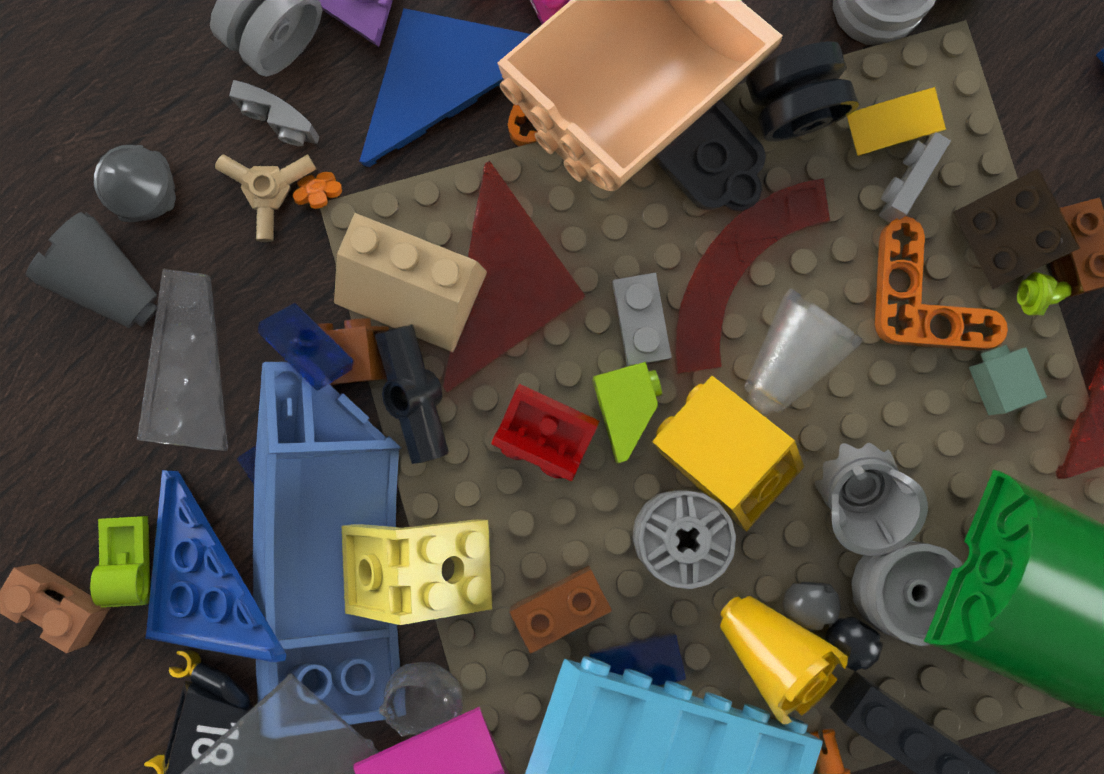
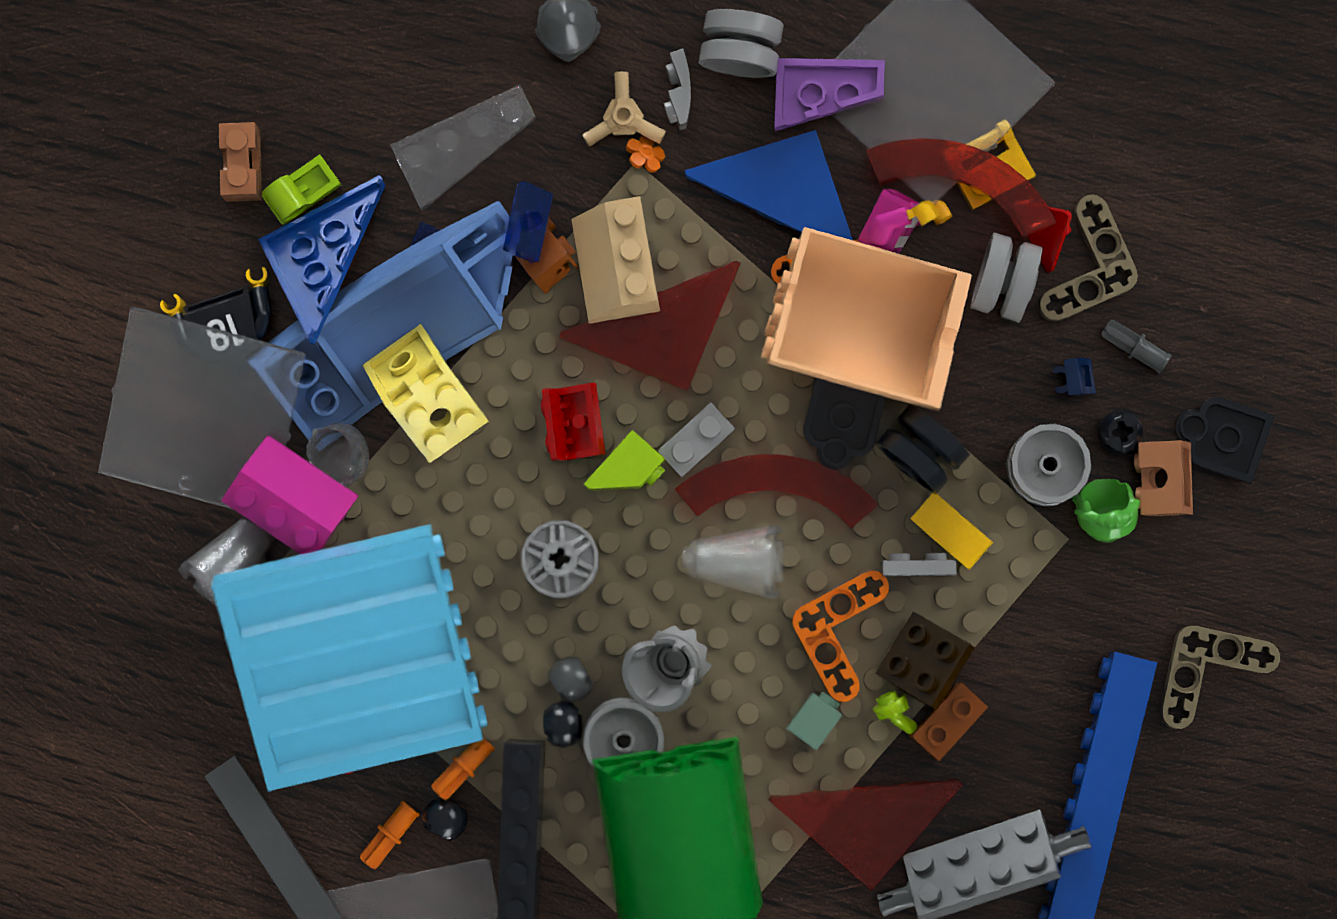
camera: 60 degrees right, 0 degrees up
(93, 273) = (486, 43): dark grey cone -> none
(412, 394) = (542, 314): black piece -> none
(559, 609) = (459, 508): dark orange hinge -> none
(654, 657) = (466, 592): clear blue plate -> none
(729, 451) = (639, 558): yellow slope -> none
(780, 656) = (521, 678): yellow cone -> none

